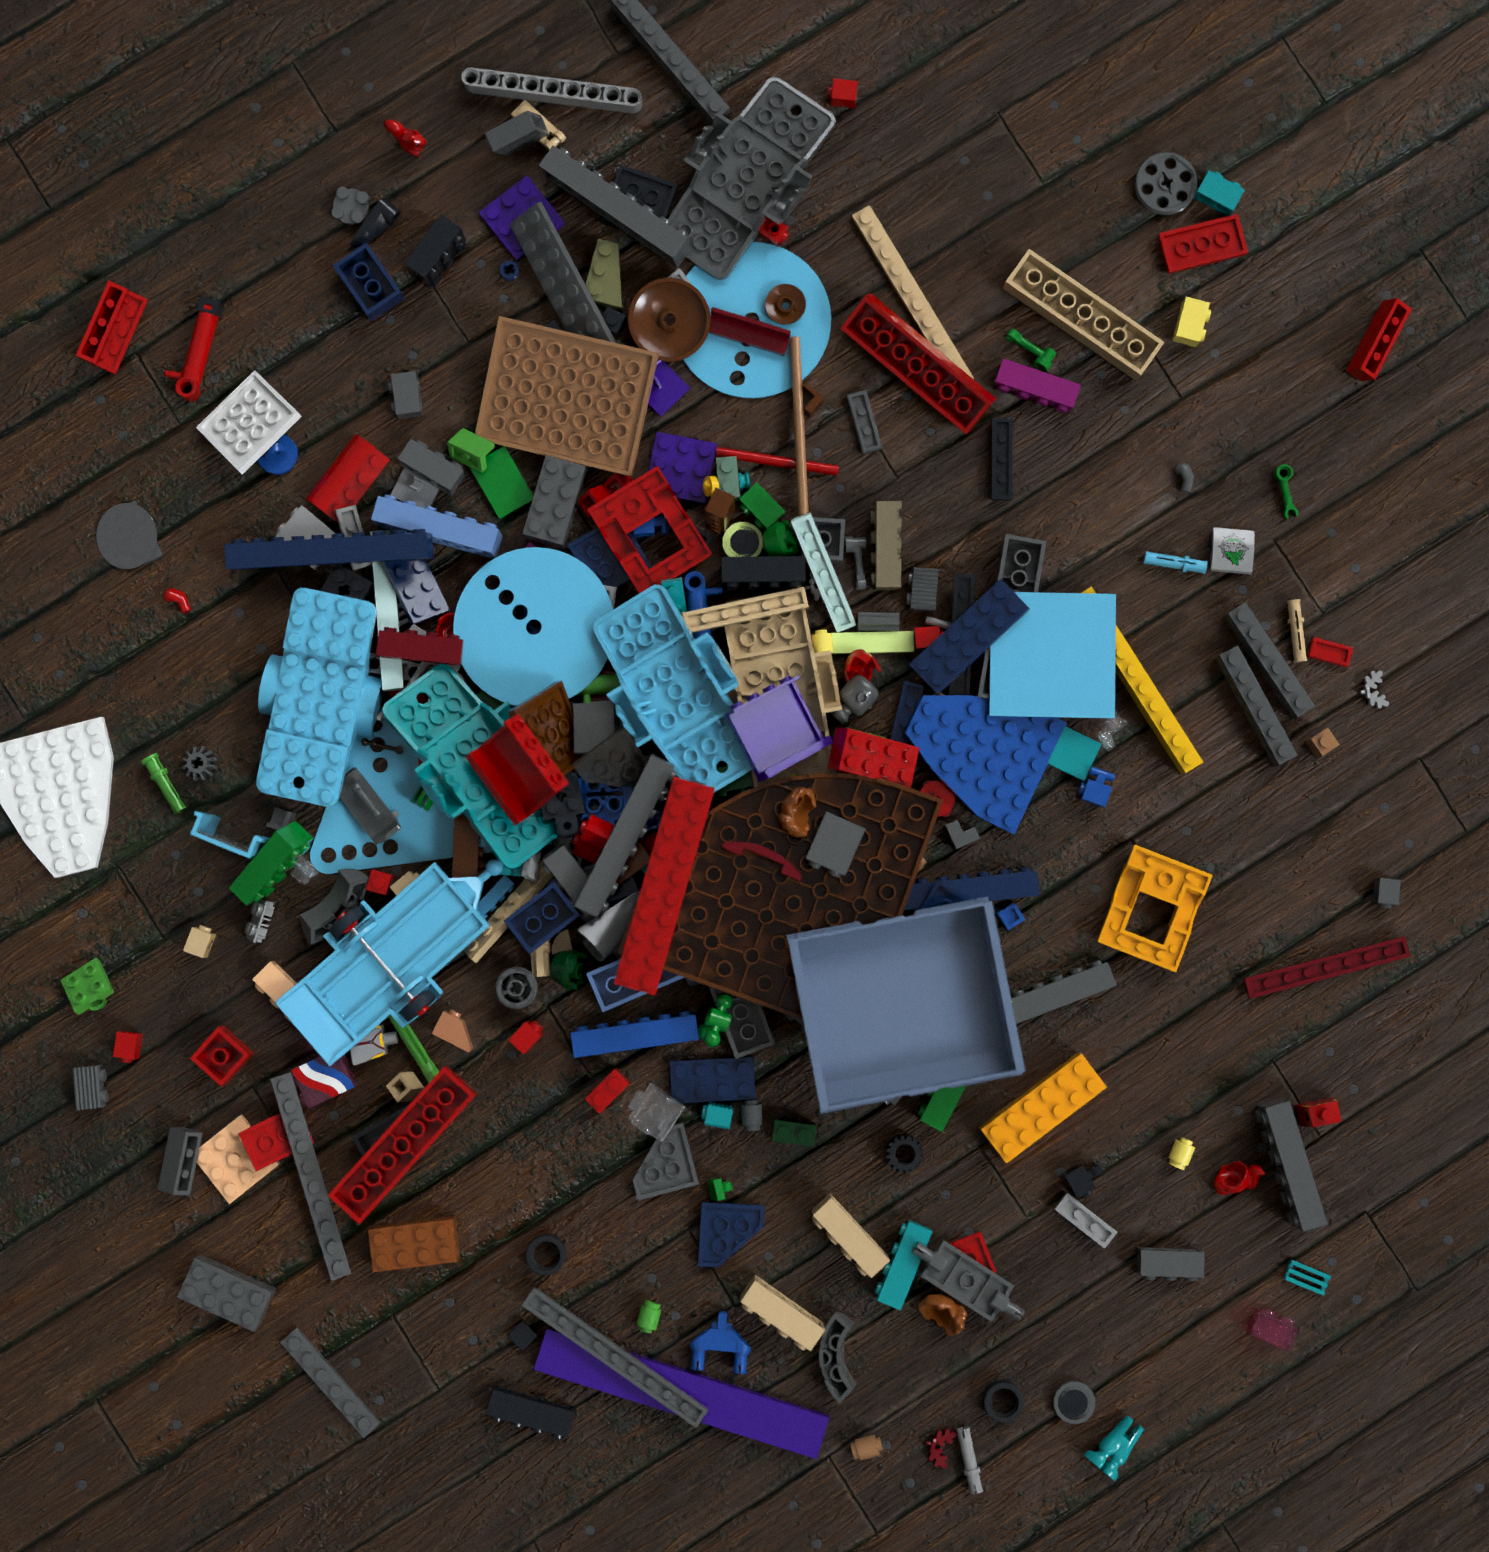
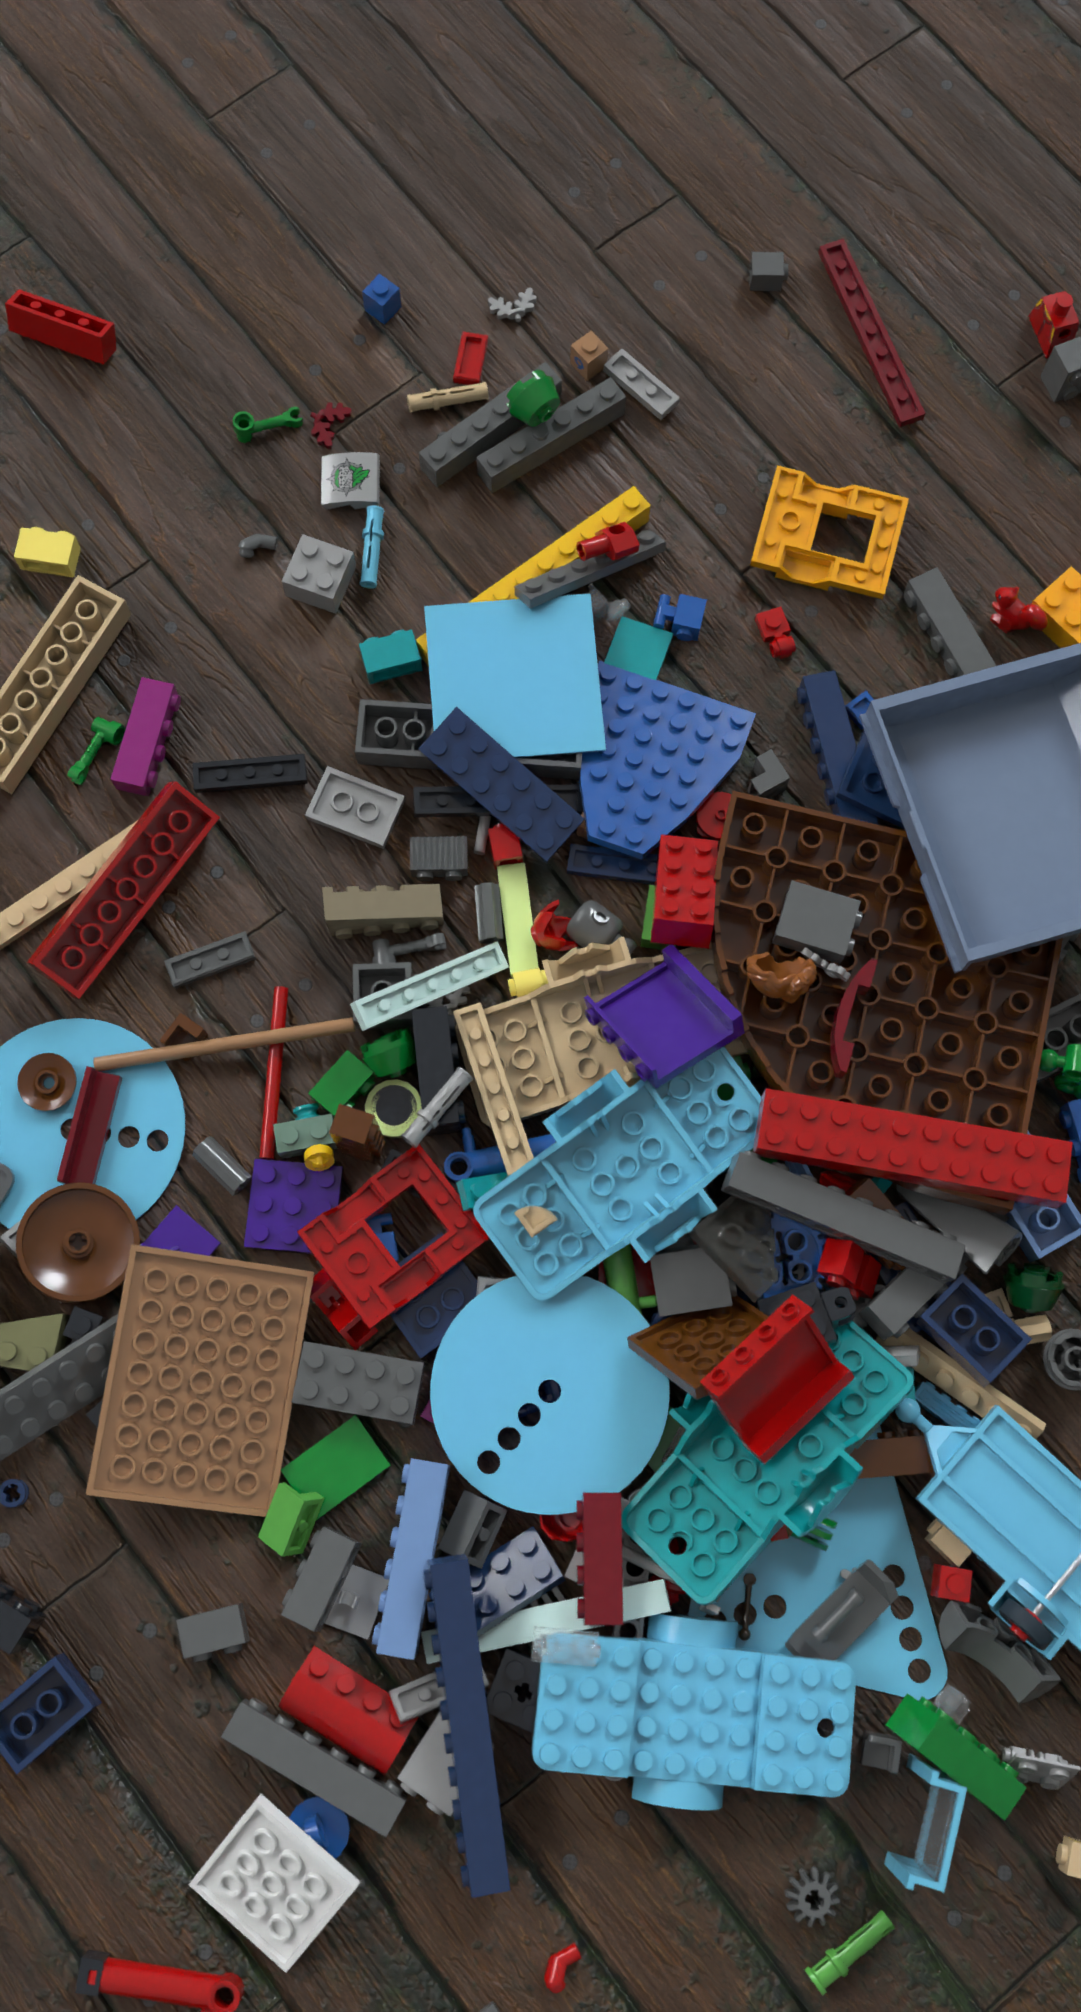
camera: 95 degrees left, 10 degrees down
(315, 454) = (315, 1766): none -> dark grey brick
(365, 613) = (565, 1646): none -> clear hinge
(451, 568) = (473, 1528): none -> dark grey brick
(646, 624) = (535, 1219): none -> tan tile
(714, 420) = (221, 1165): none -> dark grey axle
(724, 559) = (437, 1107): none -> light grey pin
(798, 850) = (830, 969): none -> light grey animal
(968, 533) = (355, 807): none -> light grey plate
(1074, 1040) = (1014, 613): none -> red animal
(1083, 857) = (774, 626): none -> red plate
(1084, 568) = (390, 656): none -> teal brick
(1138, 722) = (580, 573): none -> dark grey plate
(1155, 520) = (319, 573): none -> light grey brick
(1156, 738) = (613, 541): none -> red piece
(1274, 690) = (533, 400): none -> green cone
(1292, 548) = (326, 436): none -> dark red animal
(1295, 781) = (641, 384): none -> light grey plate
(1384, 587) = (381, 299): none -> blue brick

